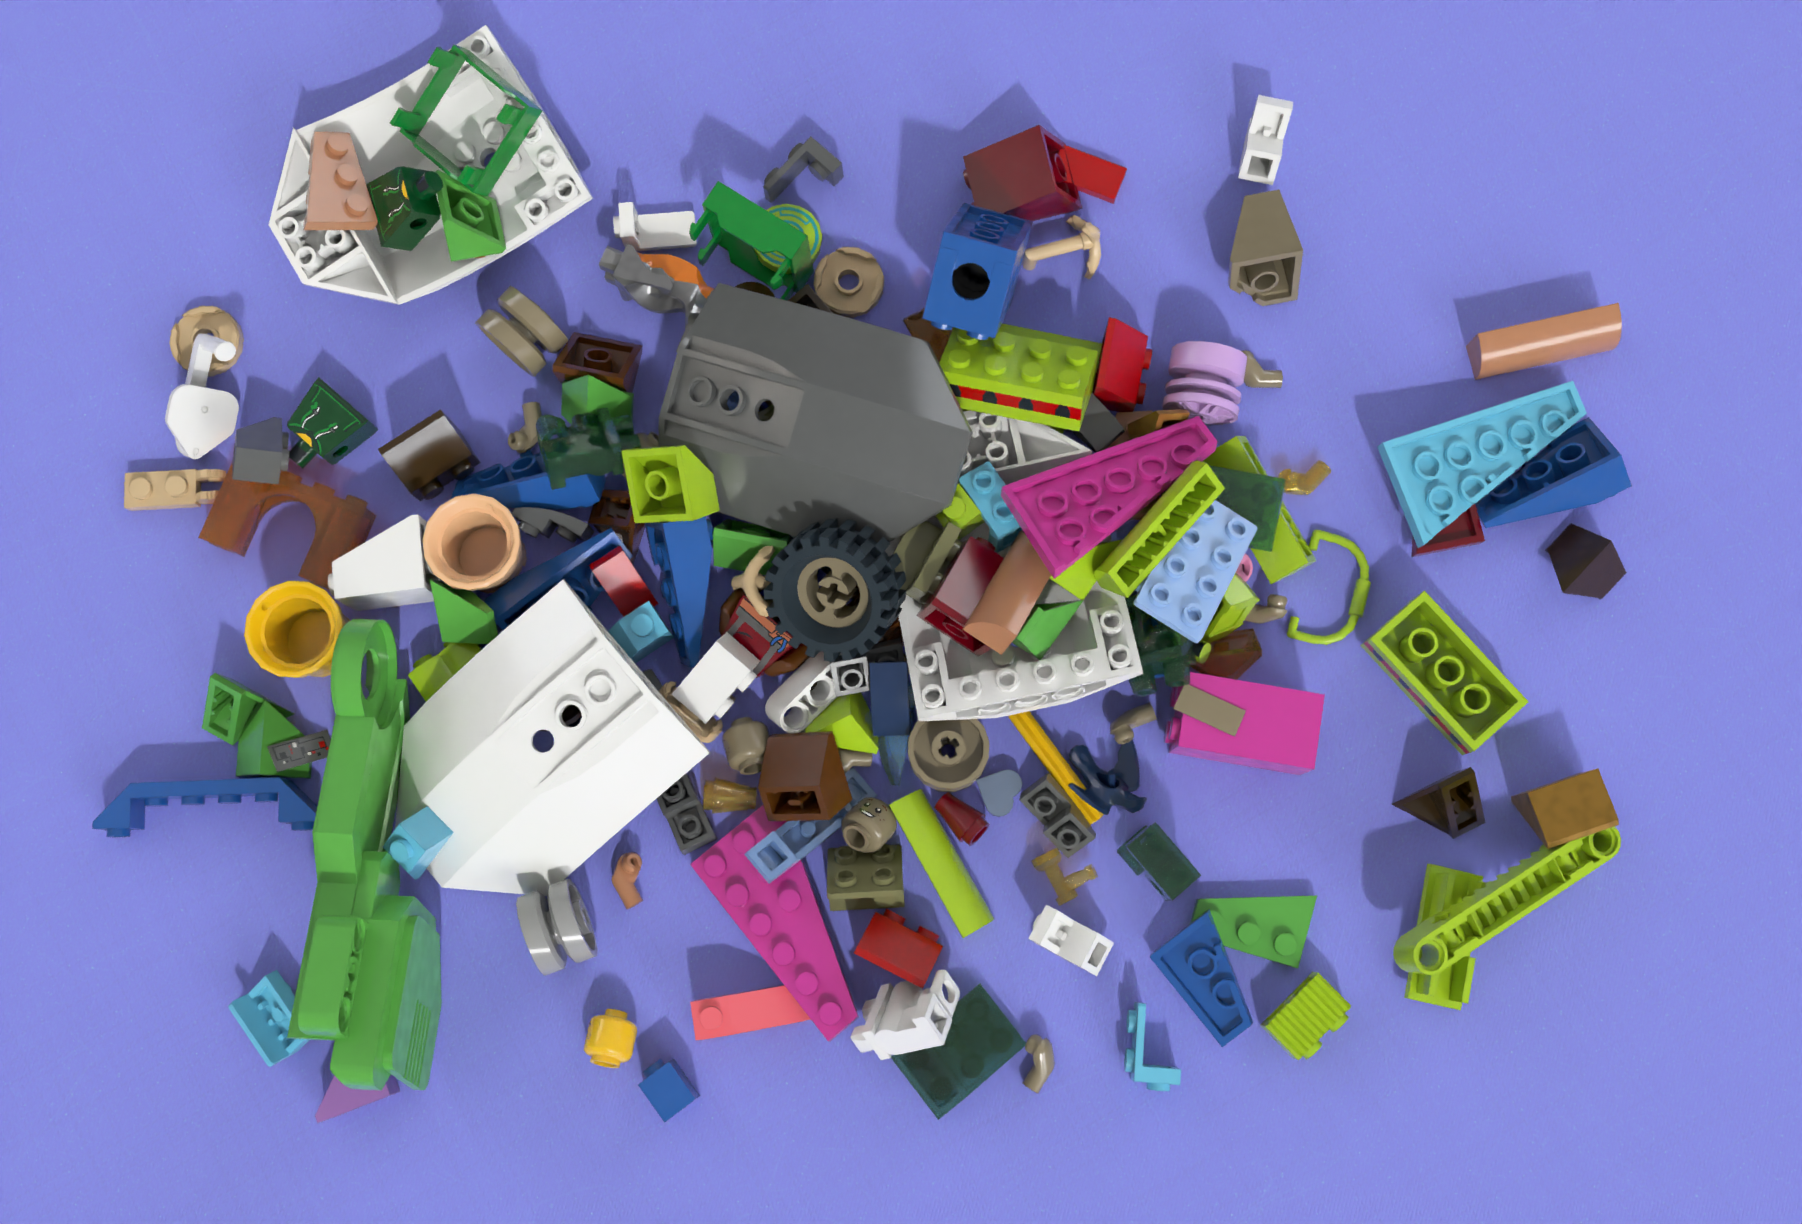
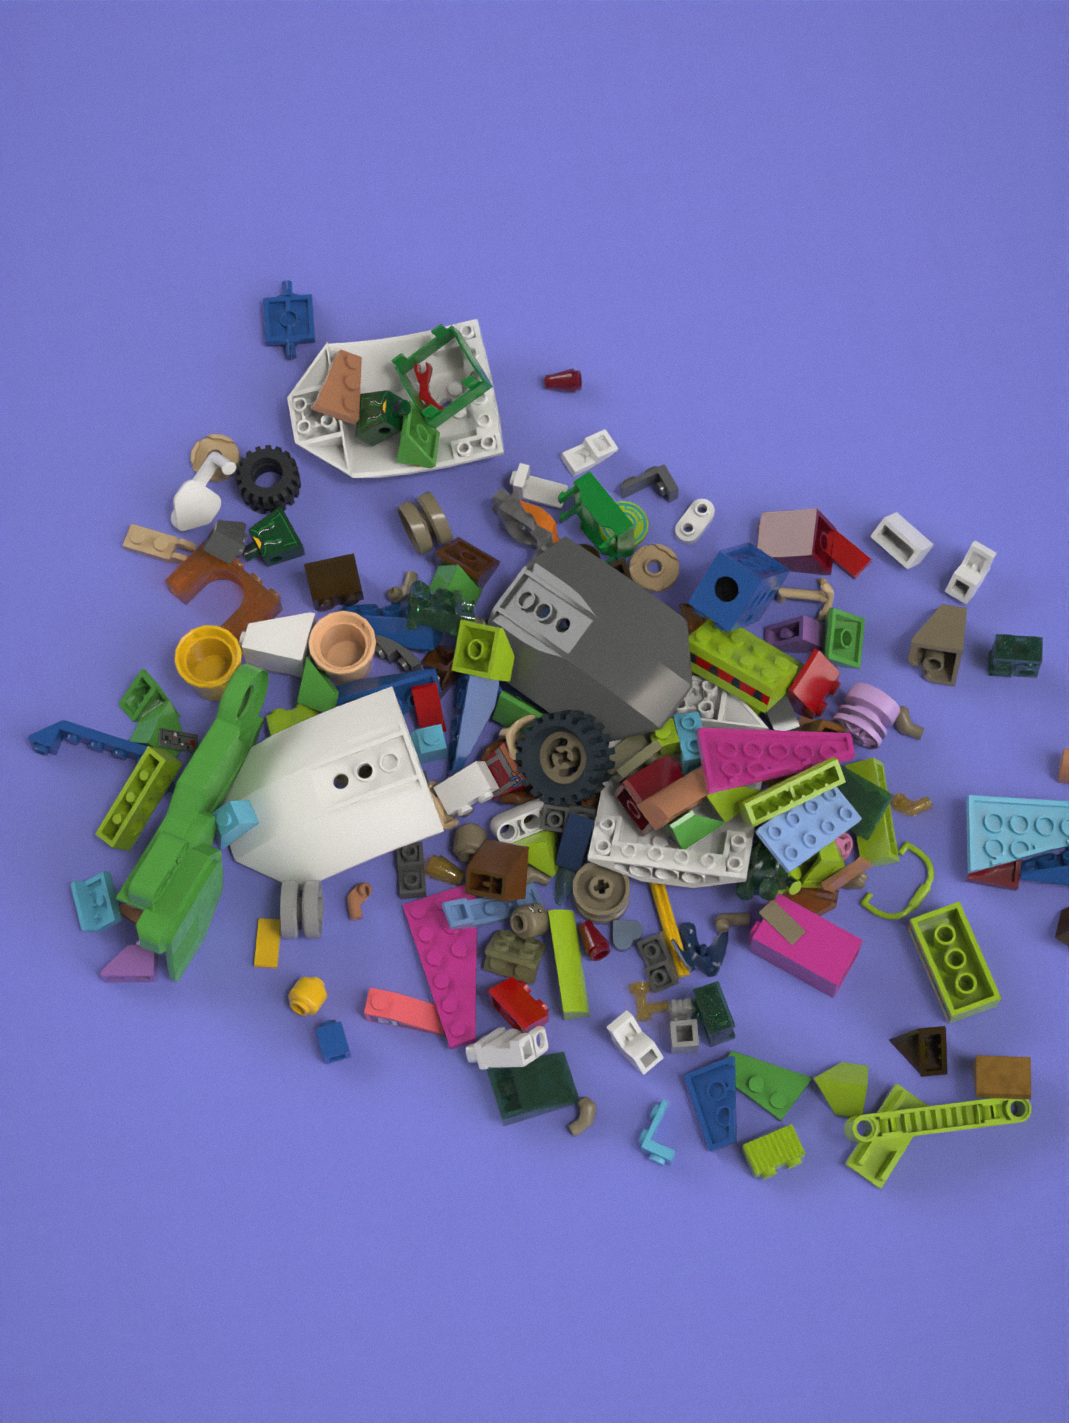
camera: 20 degrees right, 10 degrees down
(234, 116) = (289, 320): none -> blue plate
(268, 327) = (262, 462): none -> black tyre
(275, 857) = (138, 798): none -> lime brick
(447, 135) = (424, 380): none -> red piece
(528, 985) = (267, 943): none -> yellow piece
(635, 70) = (567, 380): none -> dark red cone
(705, 157) = (590, 453): none -> white slope
(878, 198) = (694, 520): none -> white plate
(1069, 306) = (796, 635): none -> medium lavender slope
(1127, 901) = (682, 1029): none -> light grey brick
(1131, 288) = (843, 638): none -> bright green slope
(1159, 129) = (902, 540): none -> white brick
(1262, 607) = (846, 874): none -> nougat piece
(1366, 892) = (845, 1088): none -> lime slope
(1370, 227) = (1015, 650): none -> hips

